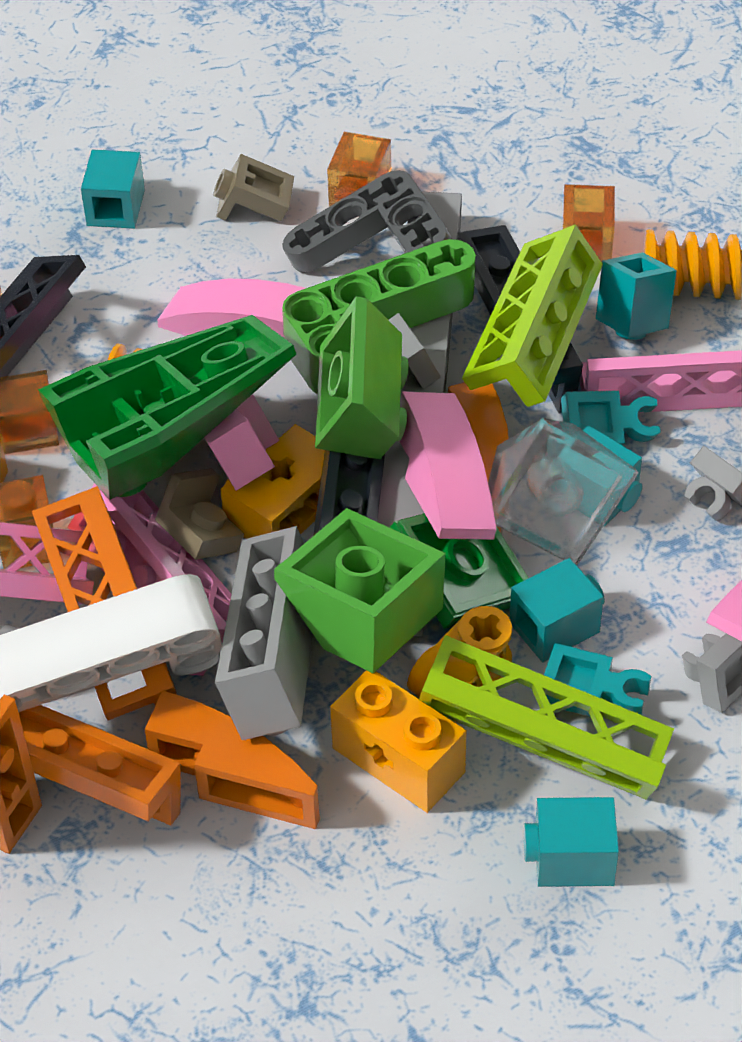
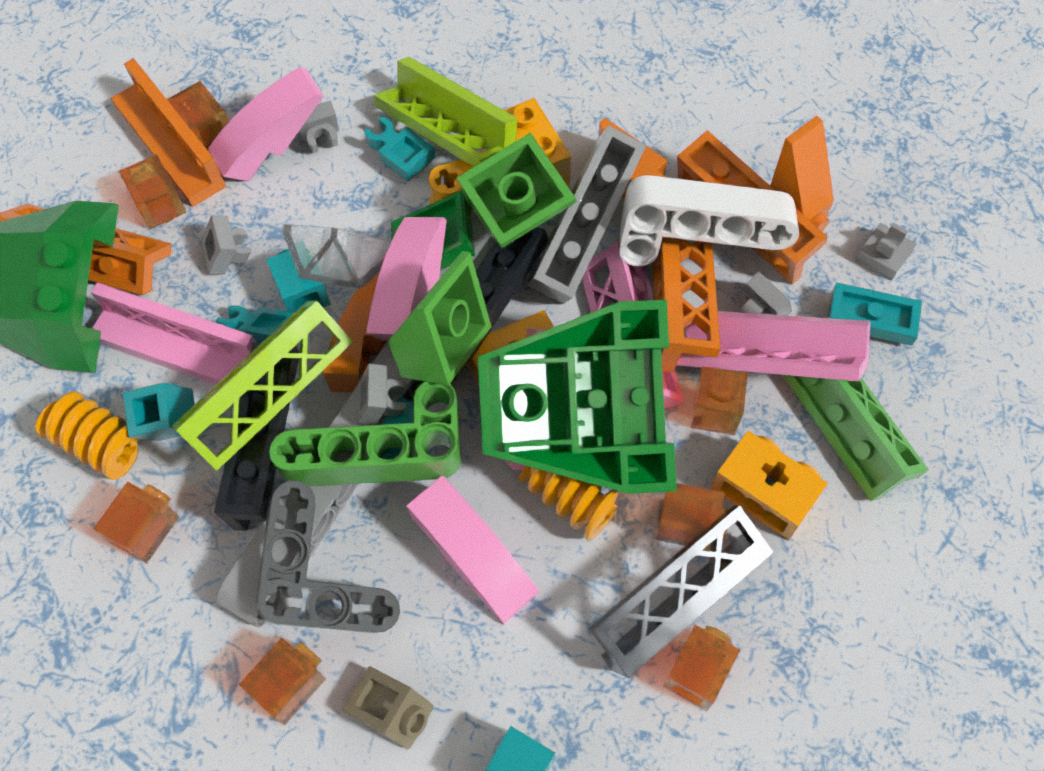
camera: 155 degrees left, 15 degrees up
(556, 608) = (386, 195): teal brick -> none
(573, 842) = (469, 61): teal brick -> none

